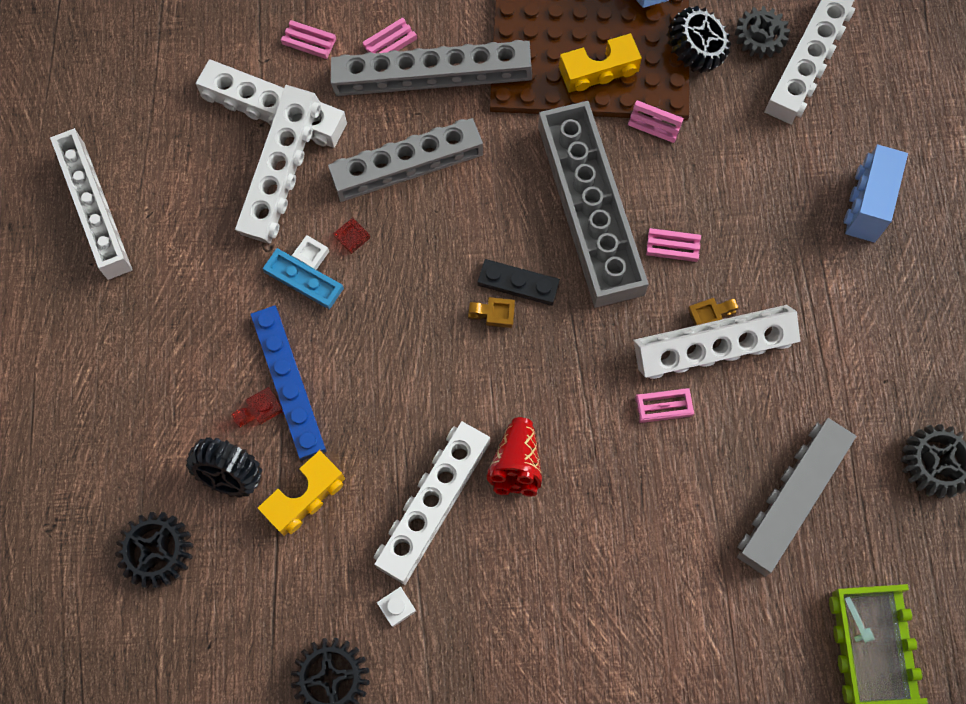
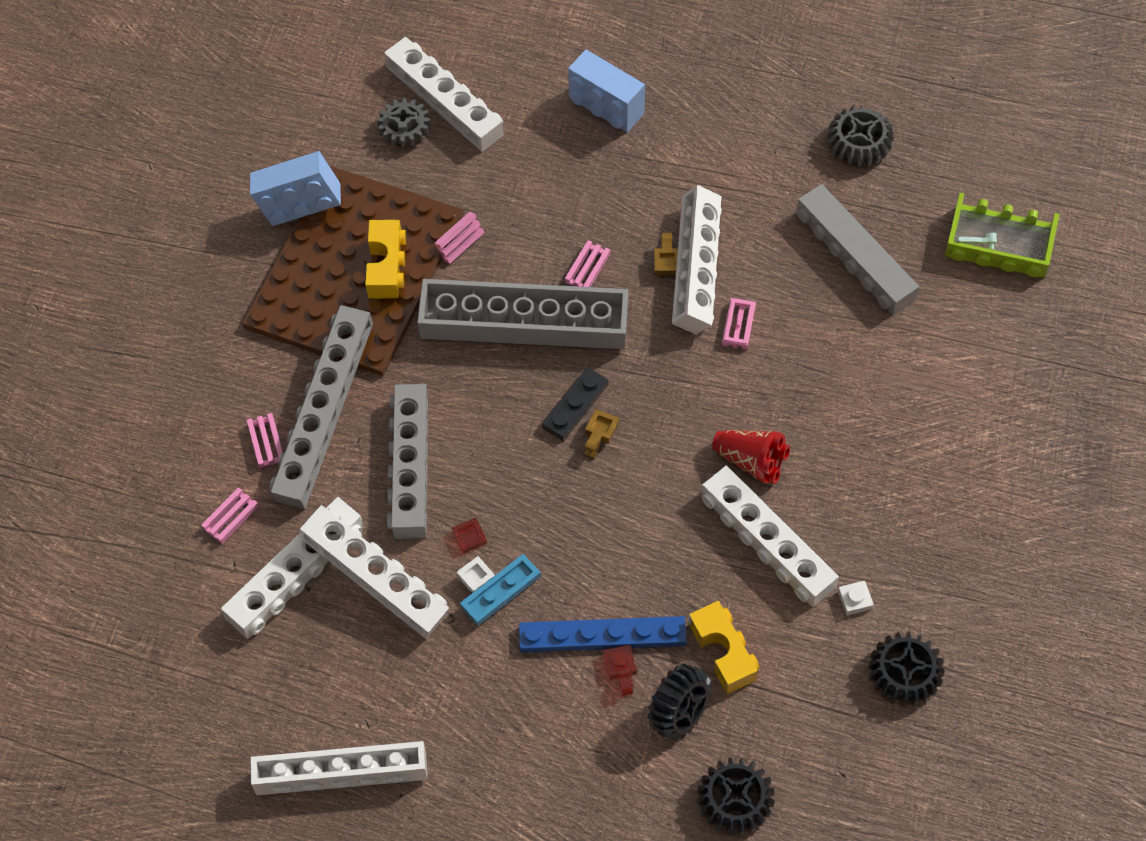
camera: 70 degrees left, 10 degrees down
(698, 39) = (393, 172): black gear -> none

